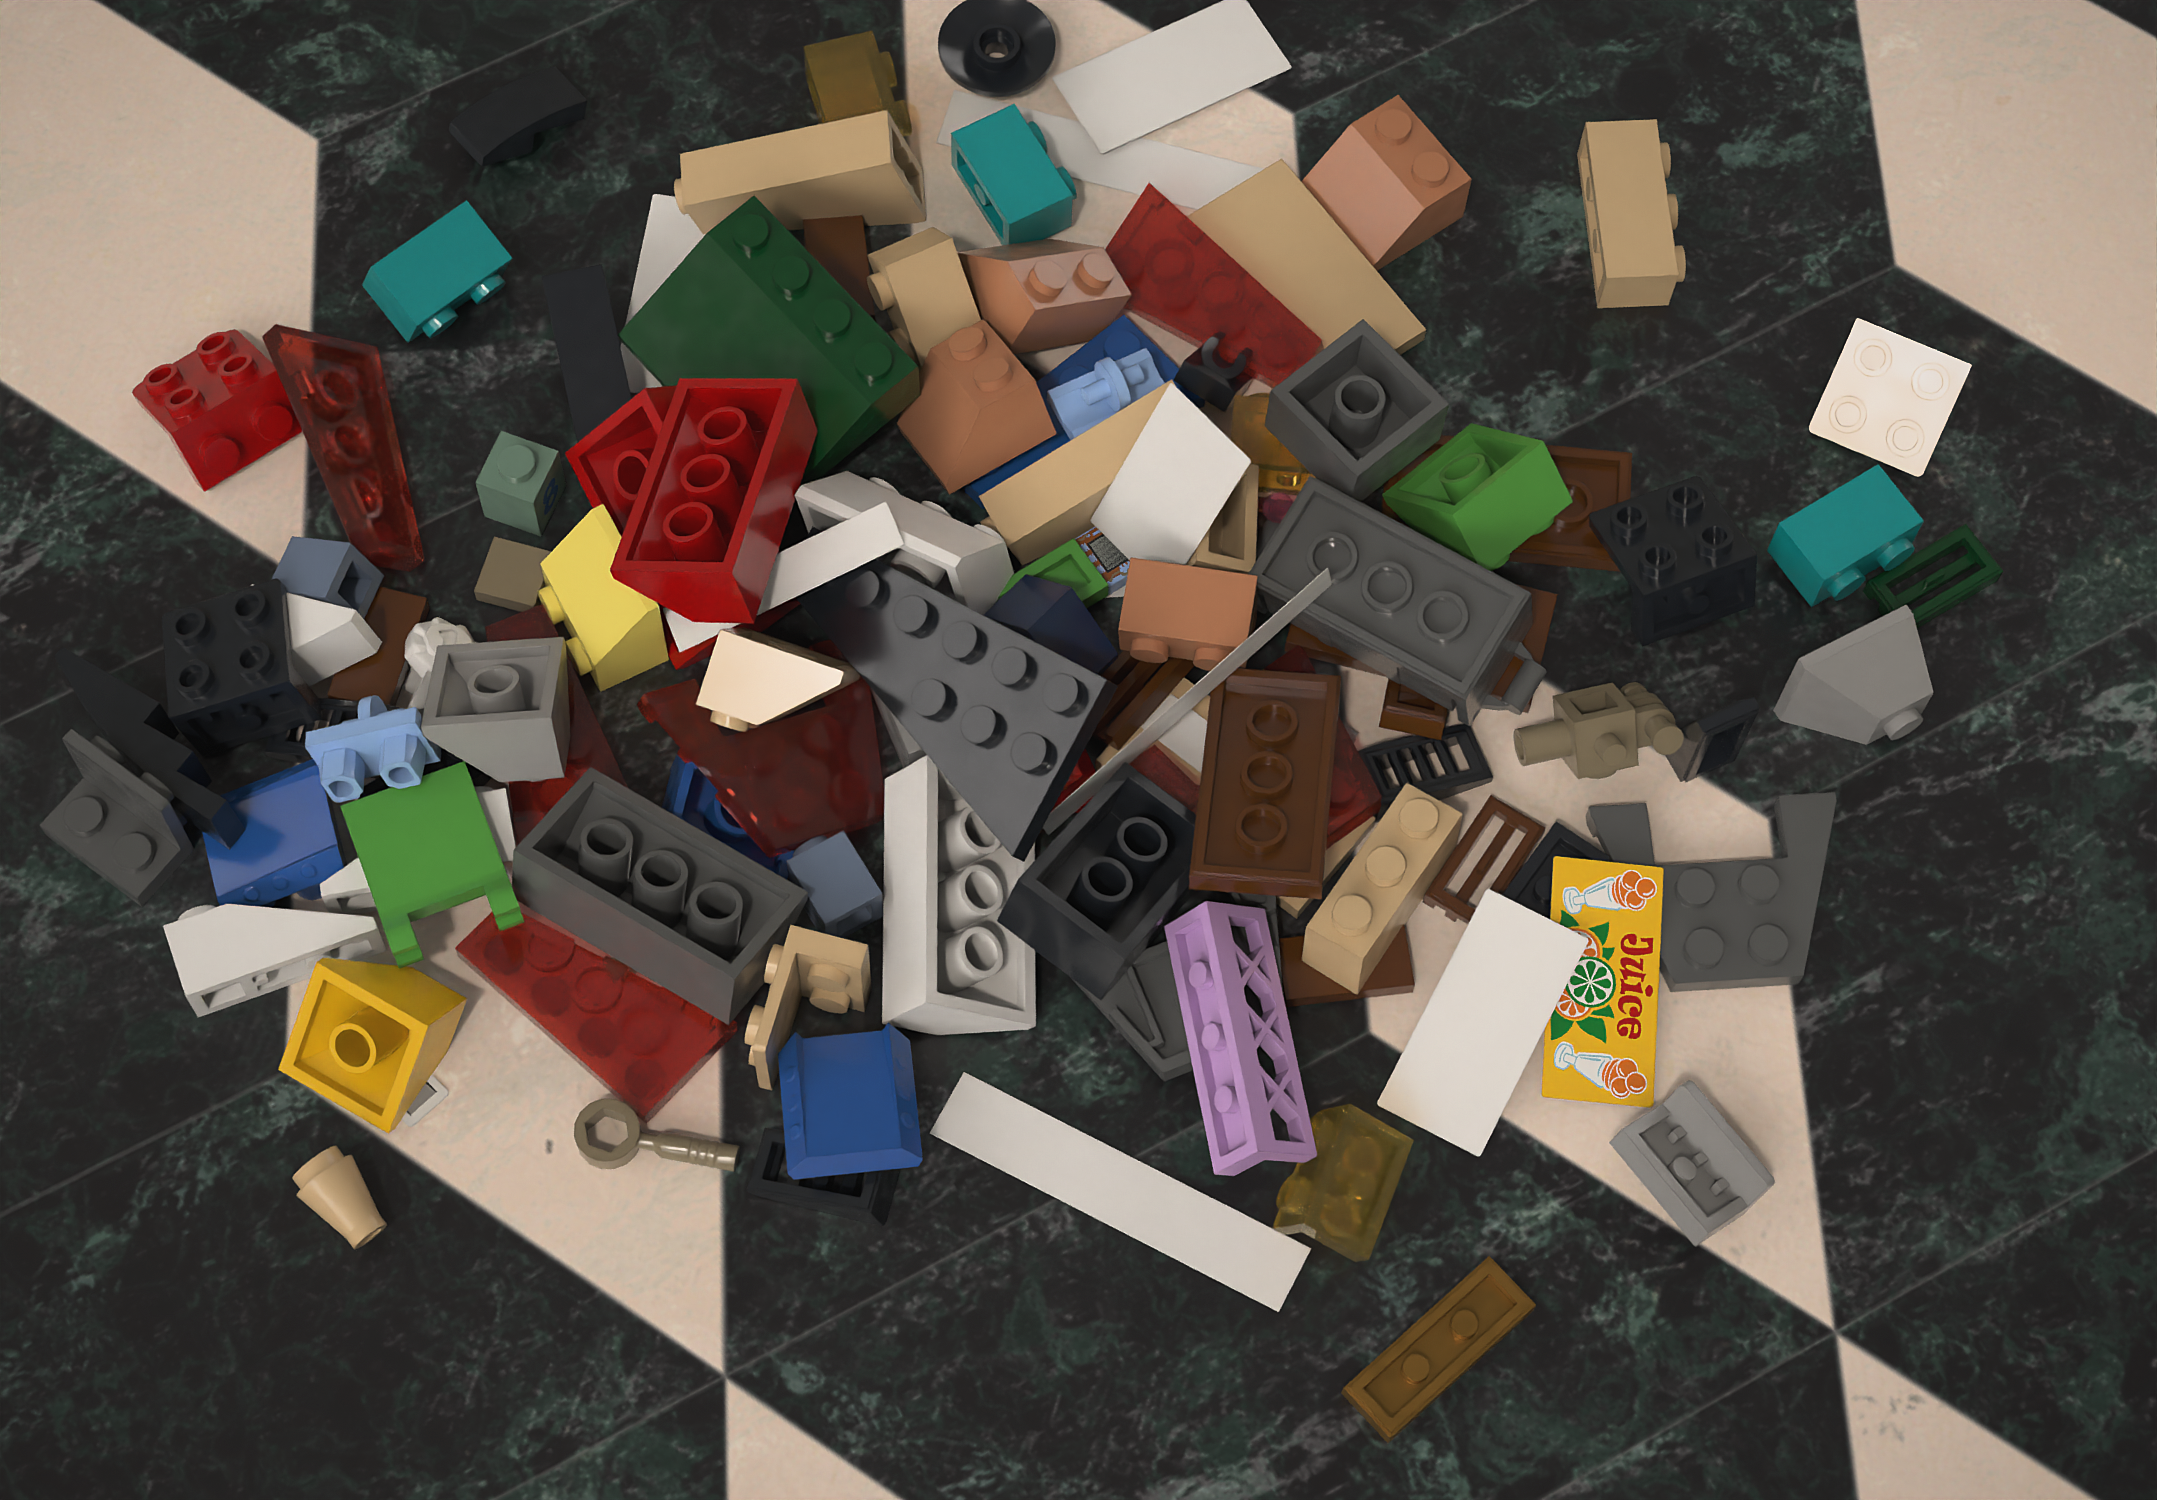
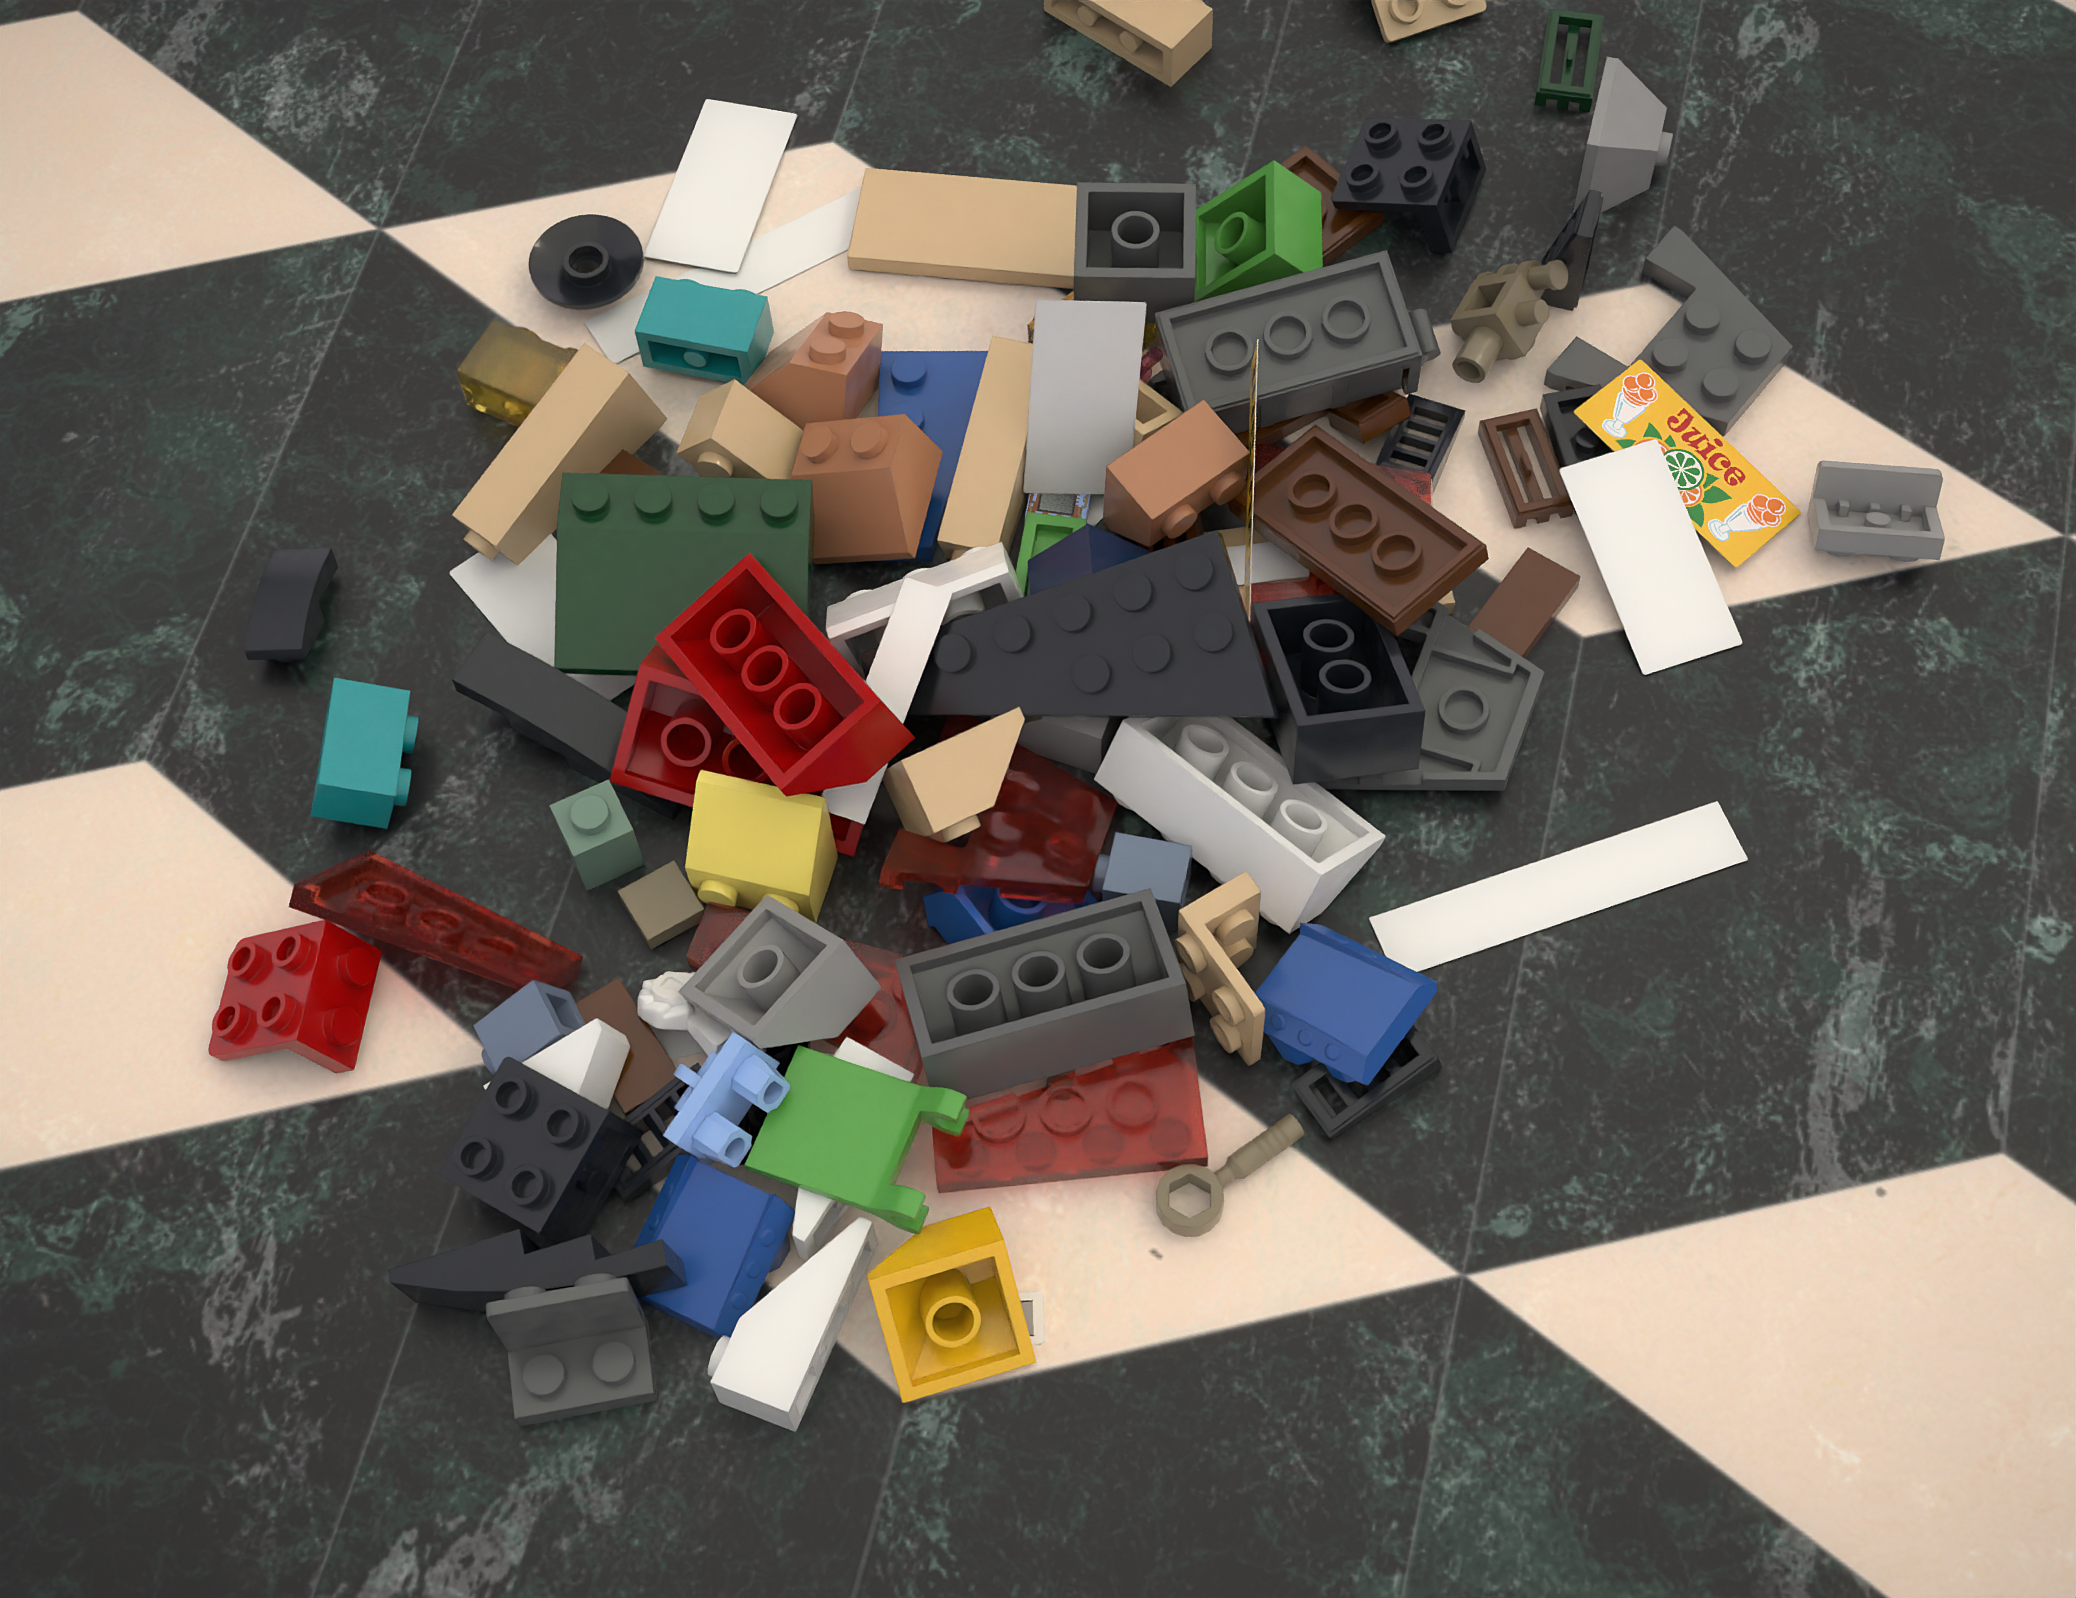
camera: 40 degrees left, 5 degrees down
(340, 1196) = (1061, 1437): tan cone -> none
(1104, 391) = (948, 397): light blue hips -> none
(1197, 289) = (929, 289): clear red wing -> none
(1214, 377) = (977, 335): black tile -> none
(1226, 1034) = (1533, 706): lavender fence -> none
(1348, 1185) = (1689, 736): clear yellow bracket -> none
(1381, 888) = (1488, 503): tan brick -> none
(1389, 183) = (956, 116): nougat slope -> none
(1438, 1349) = (1870, 780): pearl gold tile -> none
(1845, 537) = (1498, 70): teal brick -> none

